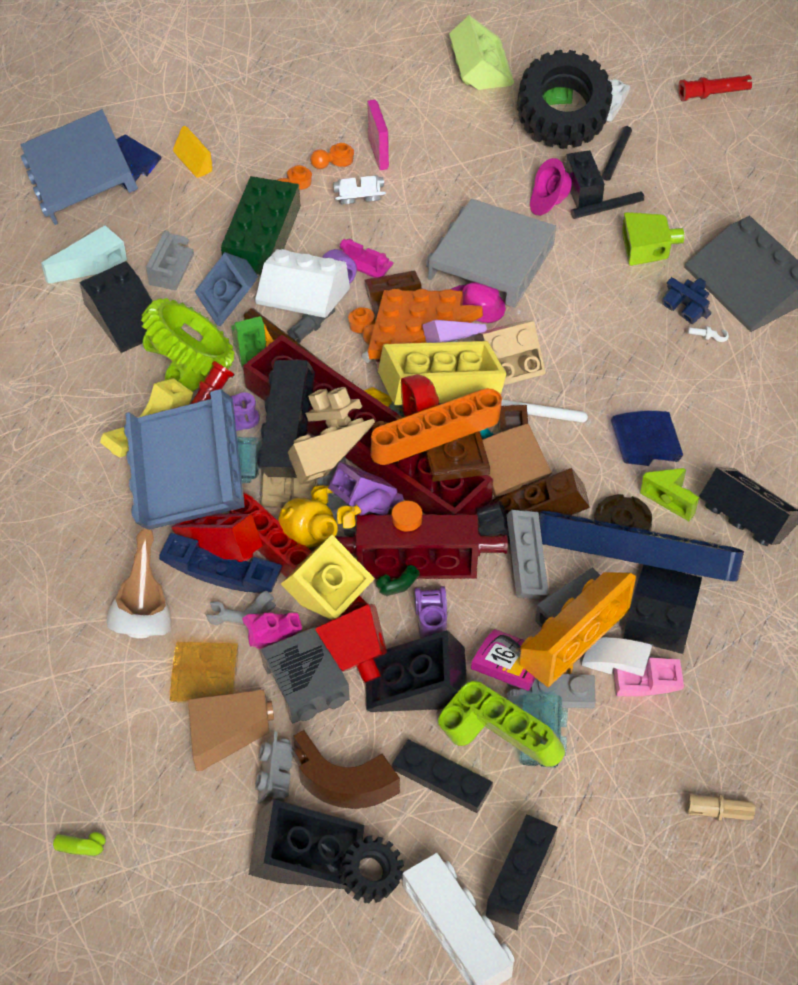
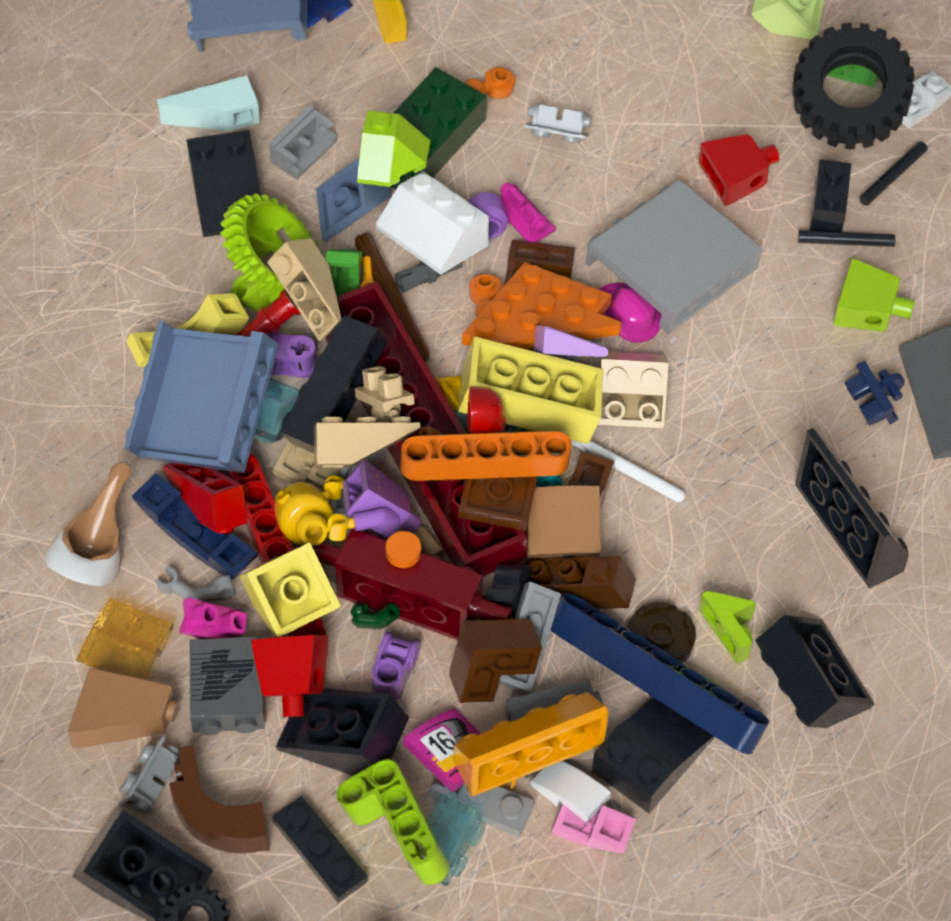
camera: 20 degrees right, 5 degrees up
(233, 351) = (308, 283): none -> tan slope
(247, 237) = (390, 149): none -> lime slope
(339, 155) = (560, 69): orange plate -> none
(378, 134) = (610, 59): dark pink tile -> none
(503, 180) = (736, 166): none -> red torso
(505, 573) = (491, 650): none -> reddish brown panel
(550, 186) = (786, 195): dark pink piece -> none
(646, 437) = (737, 547): clear blue slope -> none
(707, 333) = (879, 444): white hand -> none
(719, 380) = (848, 513): none -> black slope

